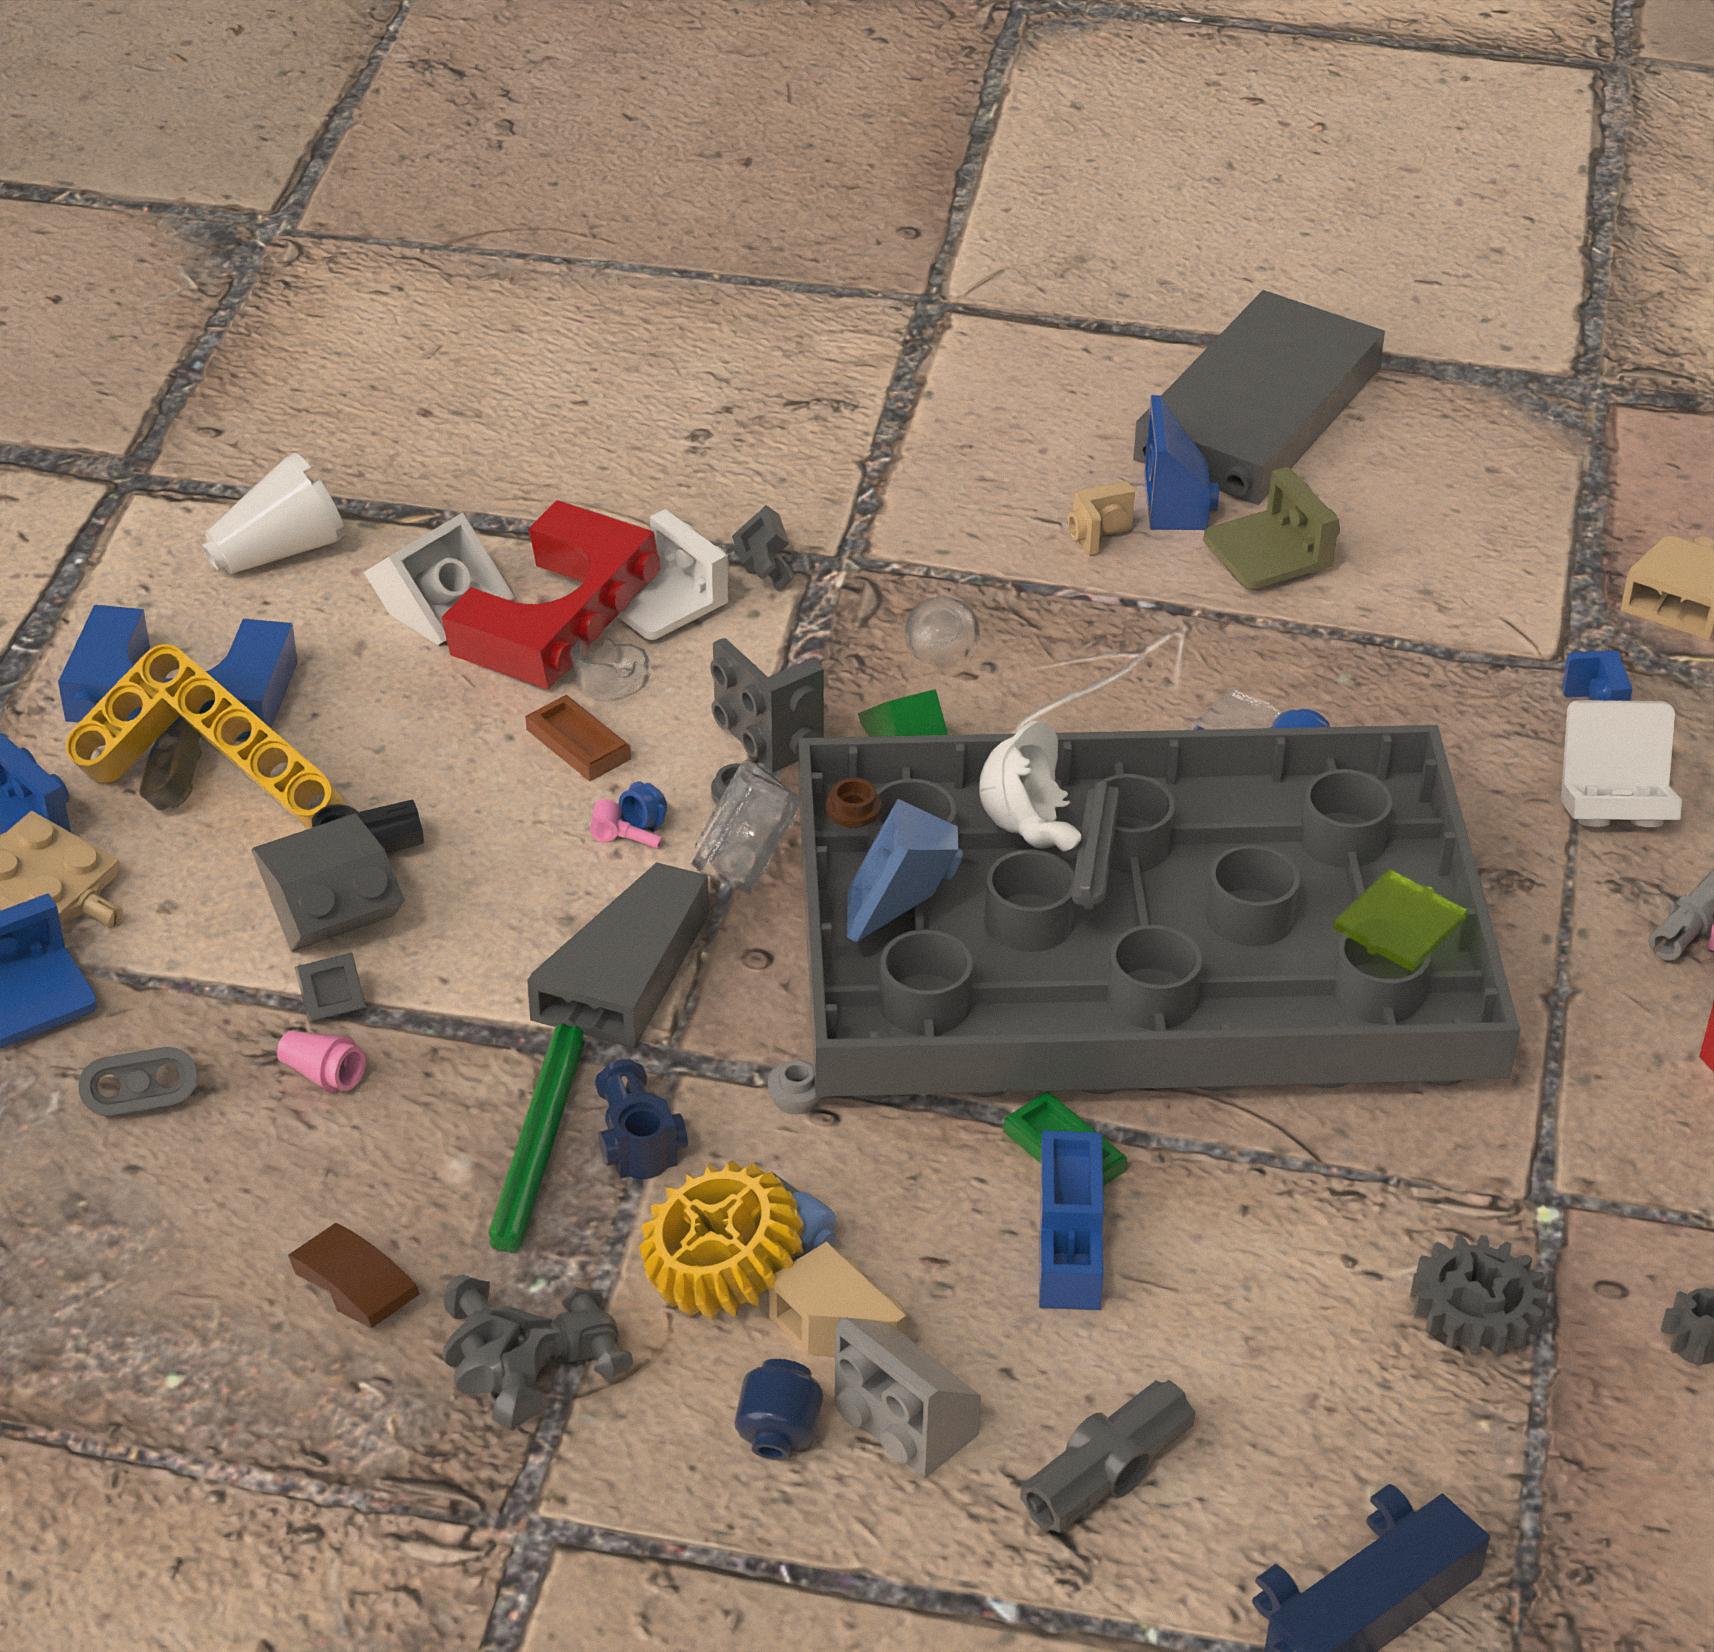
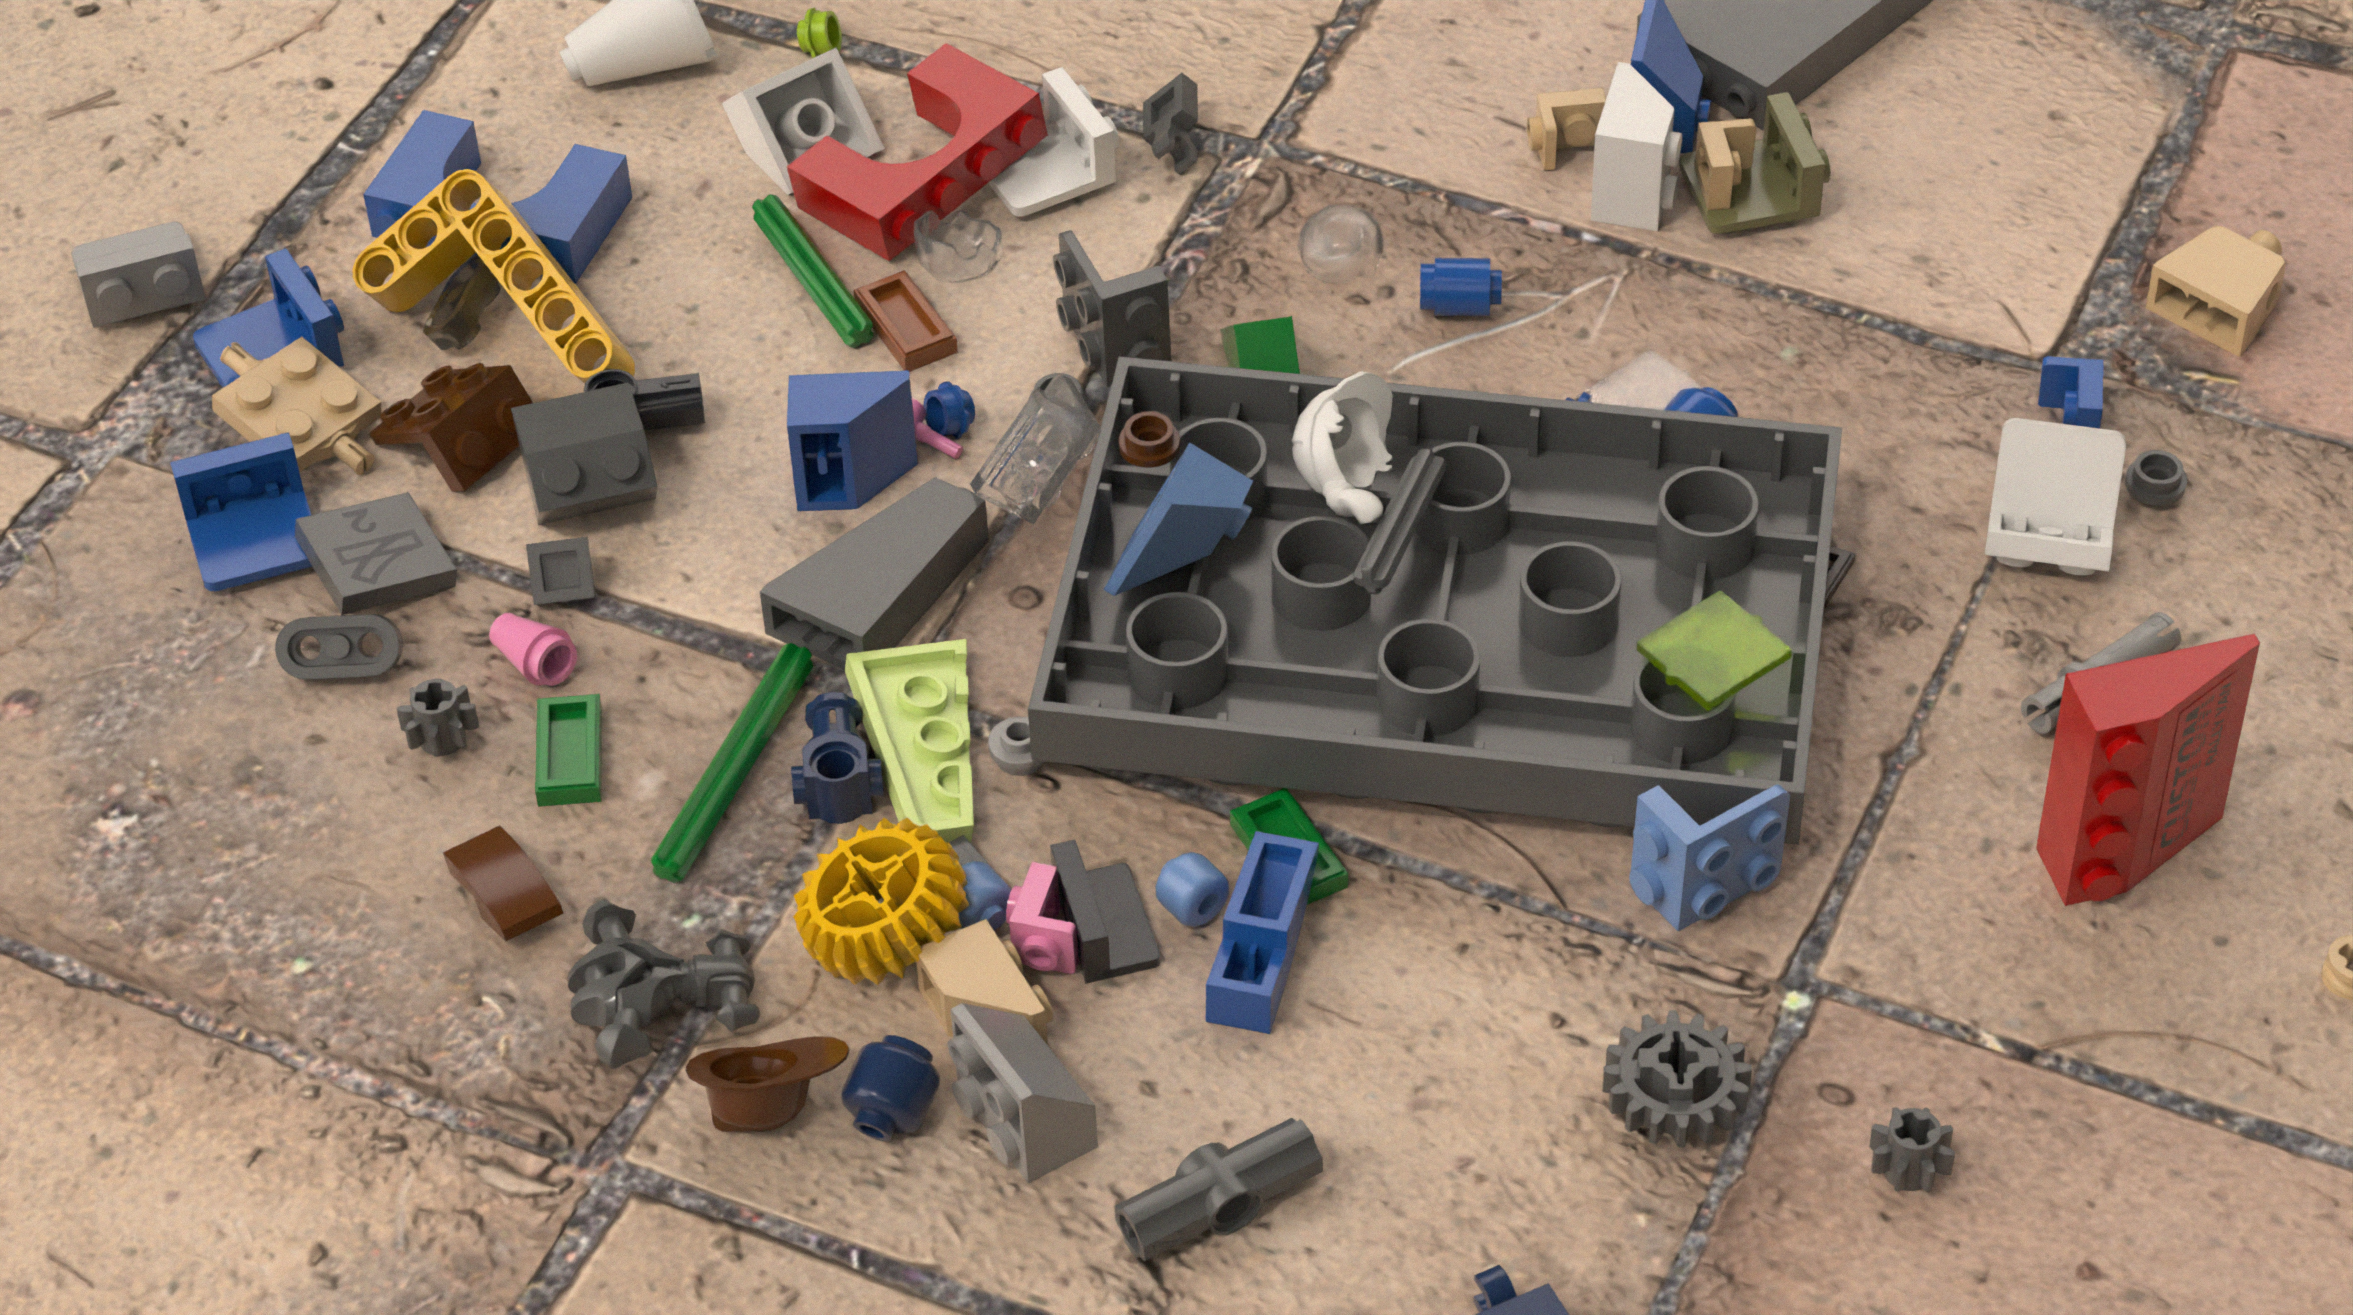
camera: 15 degrees right, 5 degrees up
(148, 994) = (375, 553): none -> tile
(201, 862) = (459, 419): none -> reddish brown bracket
(250, 1132) = (438, 717): none -> dark grey gear
(379, 1146) = (568, 750): none -> green tile
(430, 508) = (819, 32): none -> lime plate
(483, 704) = (813, 271): none -> green axle
(566, 836) = (849, 436): none -> blue slope
(661, 1421) = (764, 1083): none -> reddish brown piece
(698, 1073) = (920, 730): none -> yellowish green wing
(879, 1254) = (1034, 930): none -> bright pink bracket
(917, 1226) = (1107, 913): none -> panel
(995, 1190) = (1192, 889): none -> medium blue piece
(1056, 654) = (1460, 287): none -> blue brick
(1174, 529) = (1634, 154): none -> white slope
(1245, 527) = (1720, 155): none -> tan bracket
(1430, 1108) = (1698, 869): none -> medium blue bracket
(1690, 742) = (2156, 478): none -> dark grey plate

